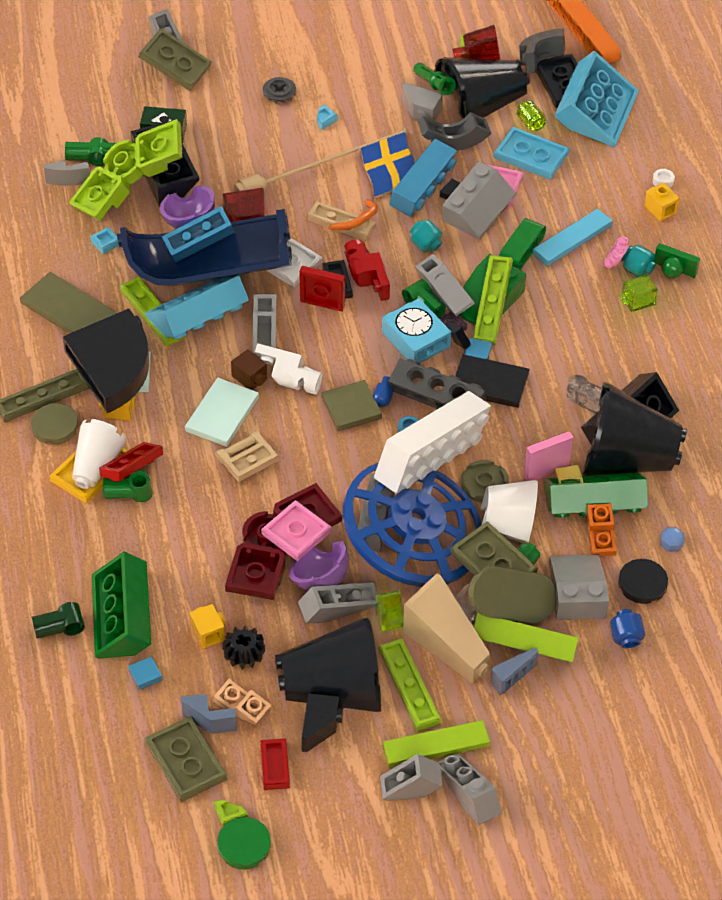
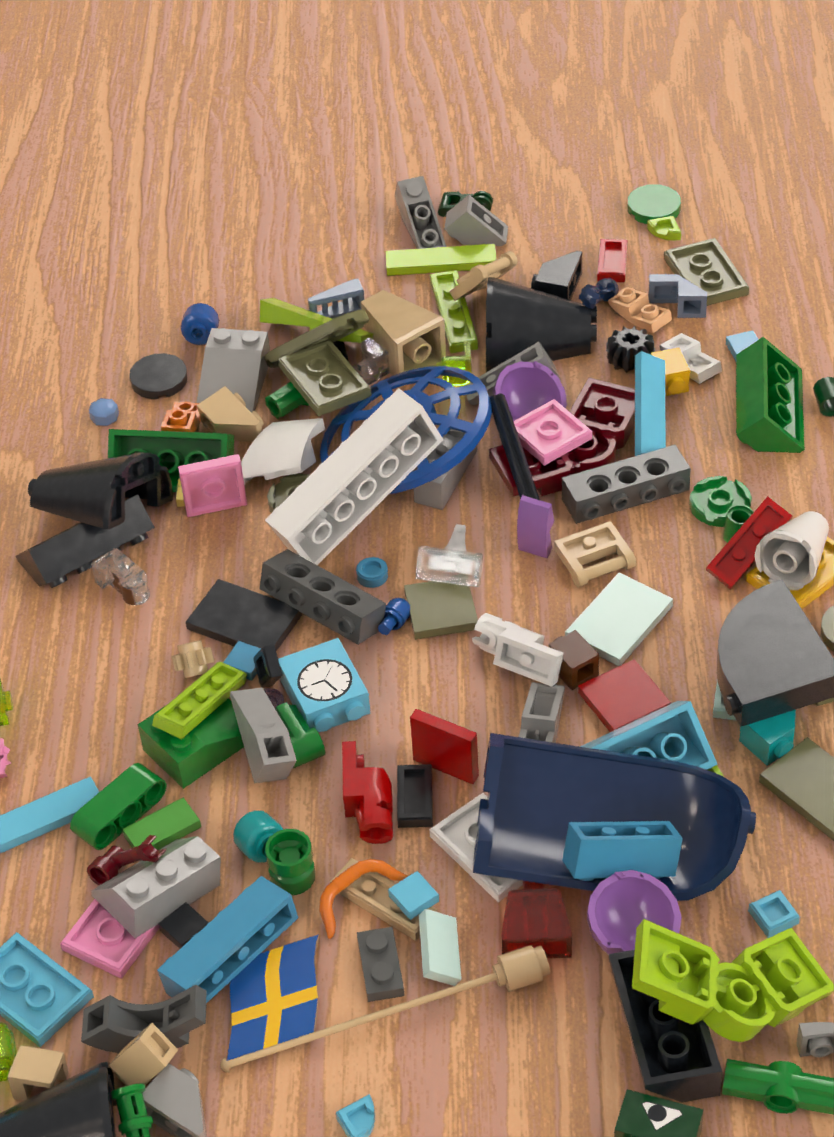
camera: 165 degrees left, 5 degrees down
(156, 518) = (713, 498): none -> green tile
(190, 653) = (700, 365): none -> white slope
(210, 356) = (622, 695): none -> tile
(218, 571) = (649, 403): none -> medium azure tile
(228, 514) = (625, 483): none -> dark grey brick
(283, 676) = (604, 290): none -> dark blue piece
(292, 451) = (533, 526): none -> medium lavender slope
(300, 194) = (439, 947): none -> light aqua tile
(318, 498) = (512, 447): none -> black axle
(321, 213) = (413, 895): none -> medium azure tile
(333, 187) = (380, 964): none -> dark grey plate
(349, 423) = (452, 563): none -> clear piece
(391, 697) = (478, 275): none -> tan plate
(400, 219) = (290, 861): none -> green wheel
(415, 818) = (449, 198): none -> dark green piece
(447, 111) = (143, 1057): none -> tan brick
(489, 241) = (167, 824): none -> bright green tile
(503, 107) = (35, 1068): none -> tan panel
(505, 336) = (192, 658): none -> tan gear
(512, 211) = (107, 866): none -> dark red brick
(561, 532) = (228, 414): none -> tan slope

